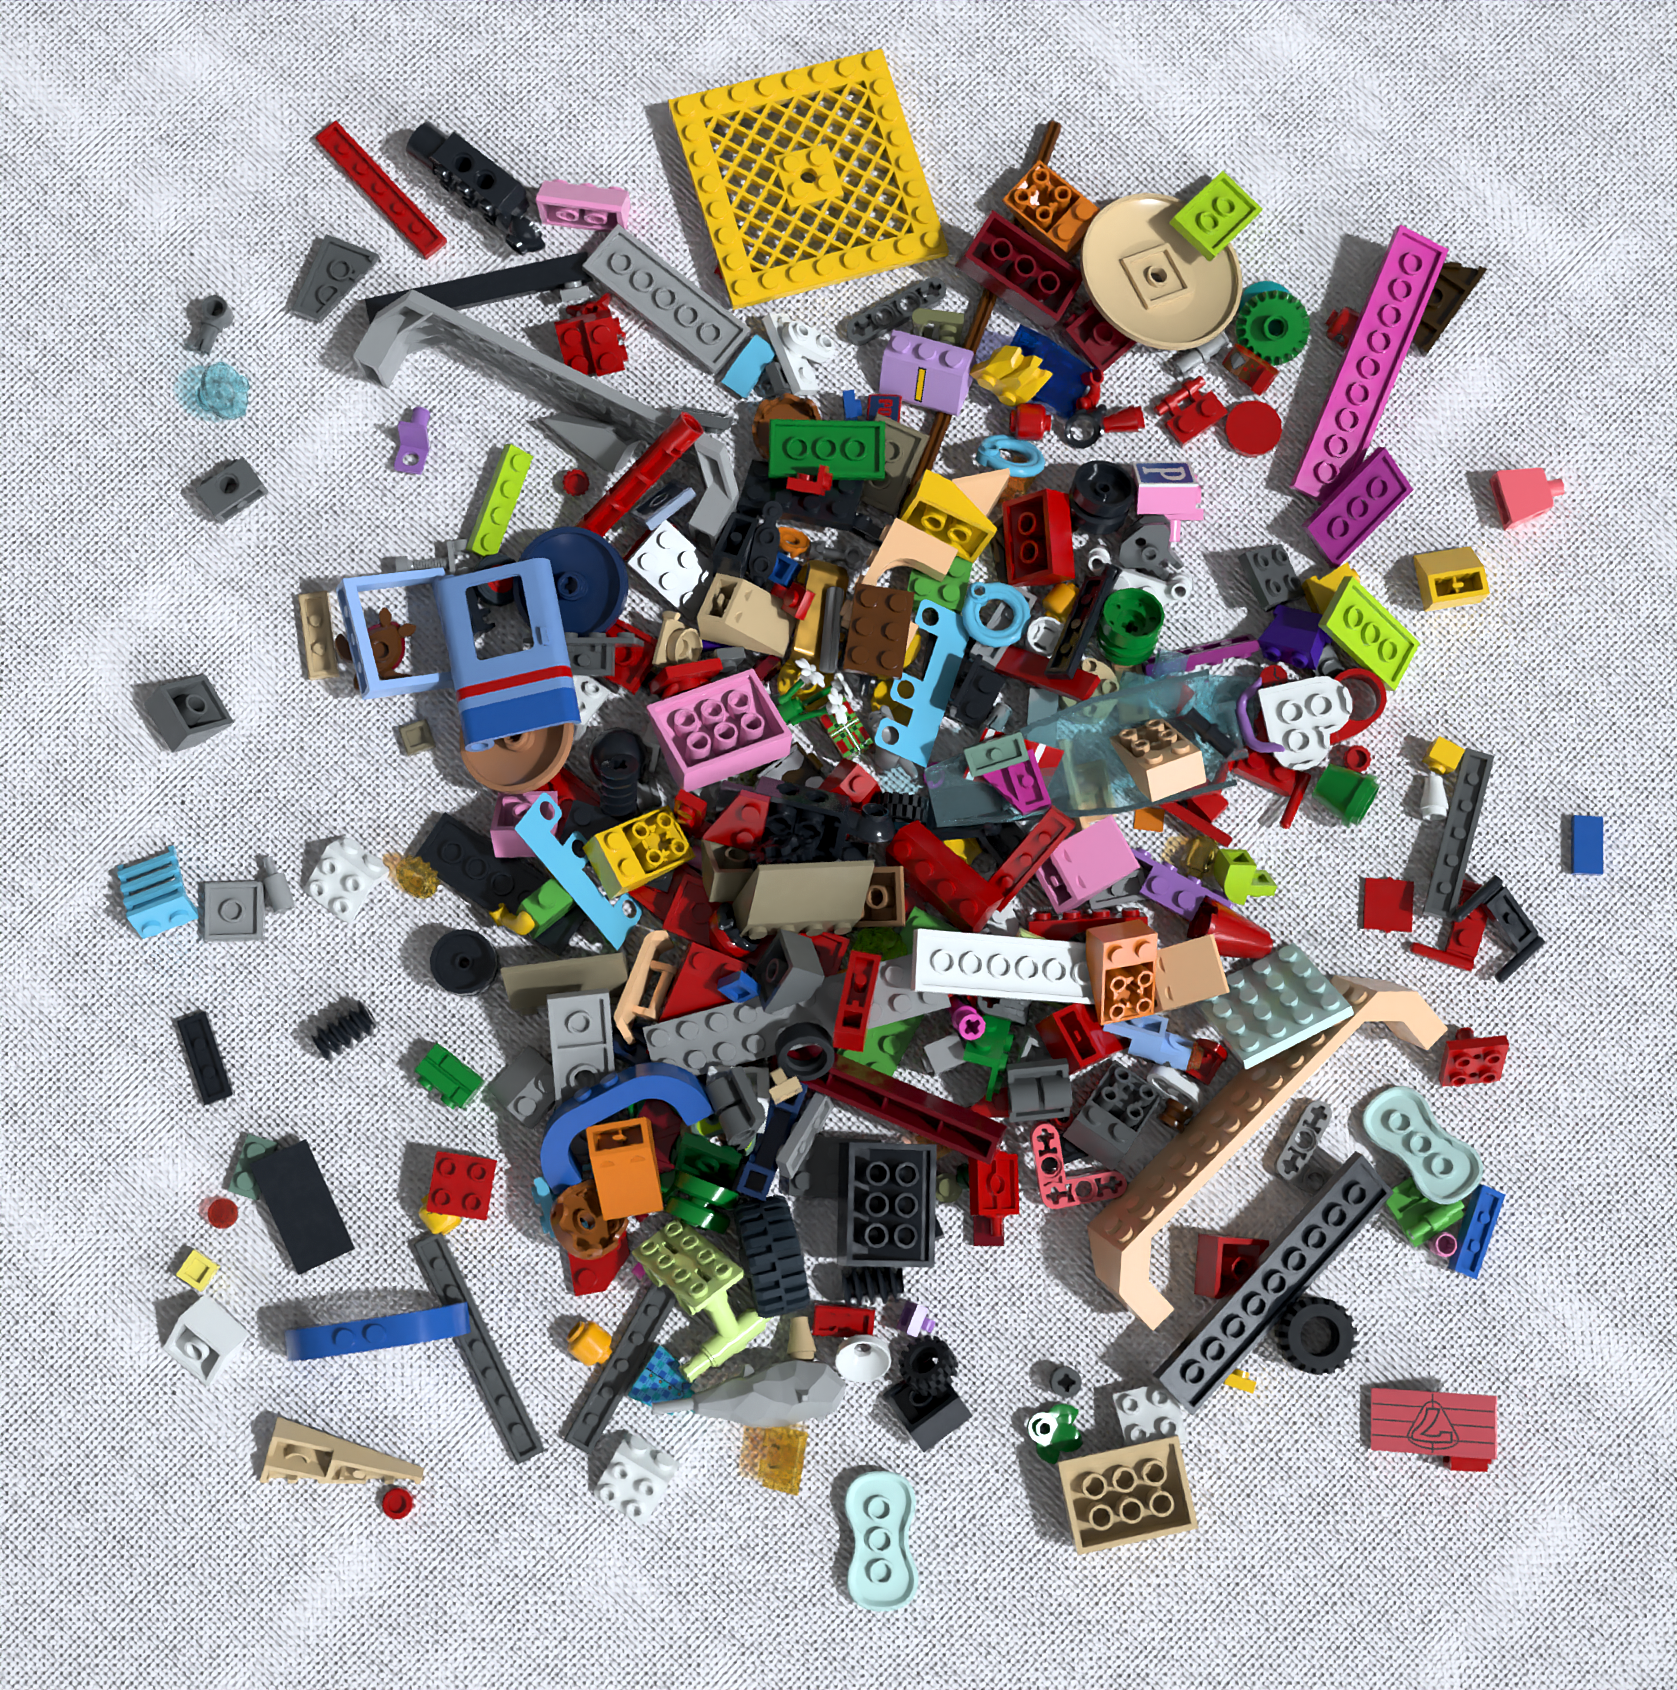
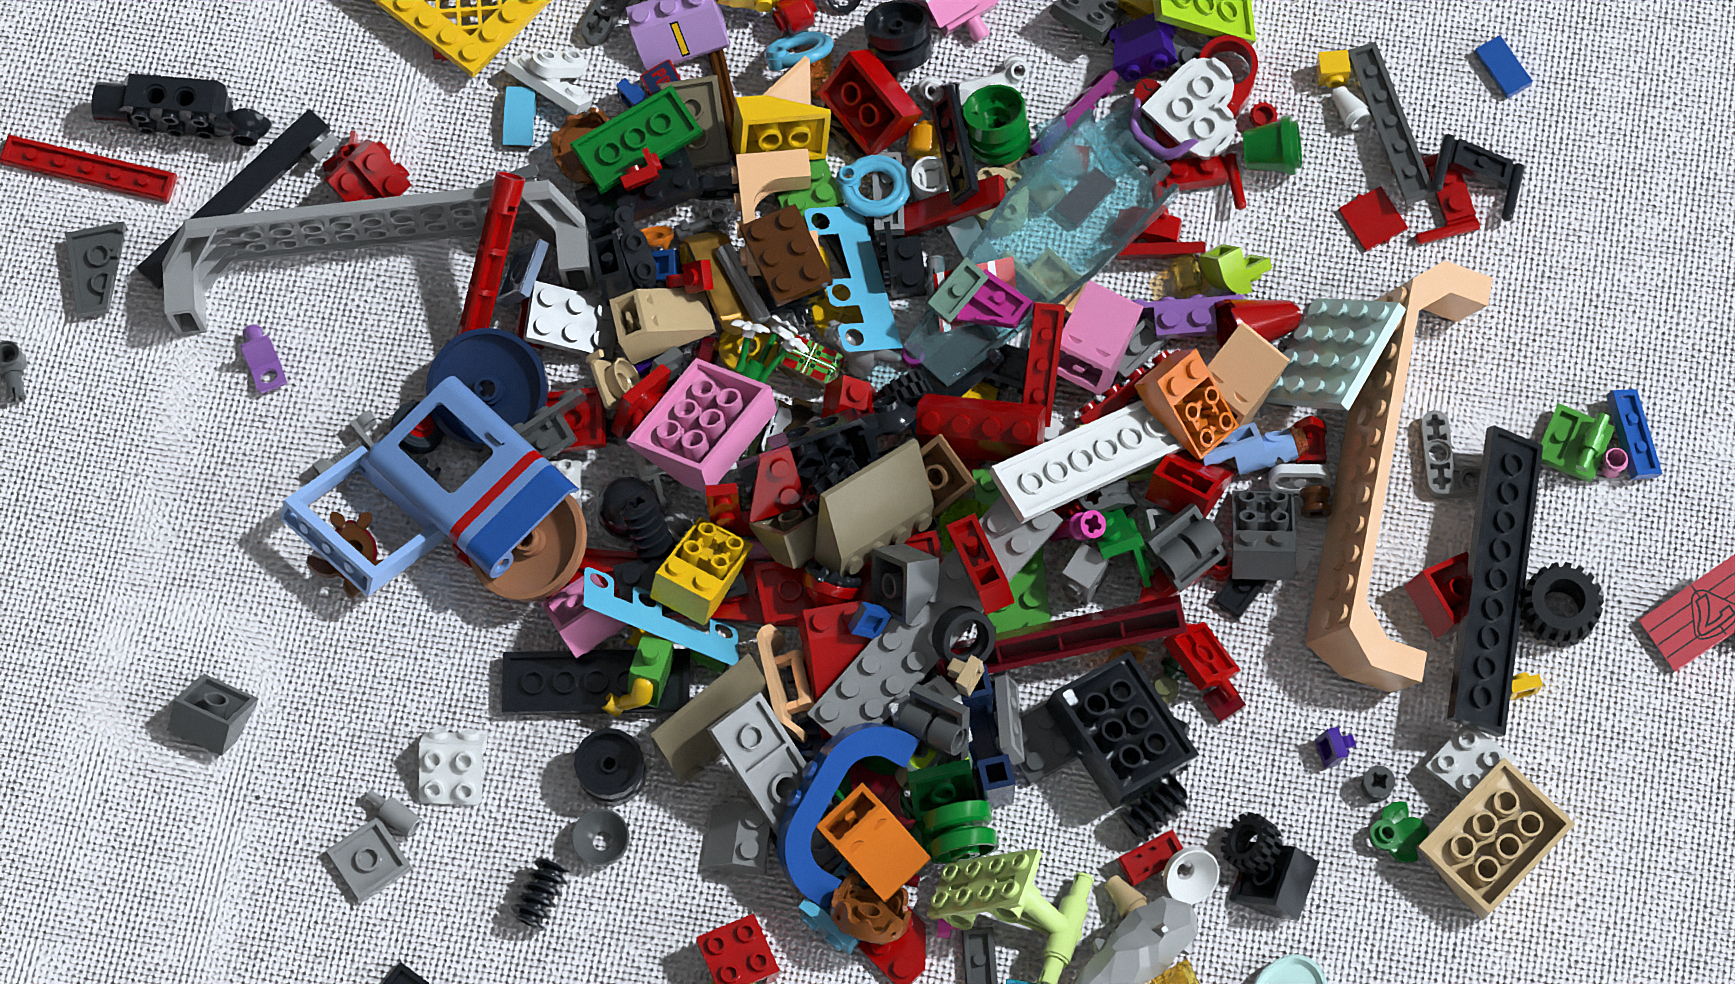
camera: 25 degrees left, 10 degrees down
(162, 905) = (300, 893): medium azure plate -> none
(223, 392) = (60, 421): clear light blue plate -> none
(225, 505) = (124, 517): dark grey brick -> none
(318, 635) = (286, 576): tan tile -> none
(406, 1011) = (593, 824): none -> dark grey piece
(414, 885) = (518, 733): clear yellow gear -> none
(417, 737) = (434, 607): dark tan tile -> none
(449, 1076) = (661, 874): green brick -> none
(499, 501) = (373, 361): lime plate -> none
(576, 482) = (431, 305): red piece -> none
(582, 206) = (283, 72): bright pink slope -> none
(600, 439) = (433, 254): light grey slope -> none
(666, 299) = (408, 104): light grey plate -> none
(771, 1256) = (1053, 821): black wheel -> none
(775, 375) = (553, 111): dark grey tile -> none
(914, 1319) = (1211, 815): medium lavender tile -> none
(1049, 1328) = (1333, 747): none -> dark purple tile
(1058, 1179) = (1252, 616): coral beam -> none
(1148, 544) = (969, 50): dark grey hinge -> none
(1149, 819) = (1122, 275): orange sticker -> none
(1159, 759) = (1098, 210): light nougat slope -> none
(1209, 733) = (1125, 167): black pin -> none
(1439, 1163) = (1562, 394): light aqua plate -> none
(1472, 1059) = (1526, 291): red plate -> none

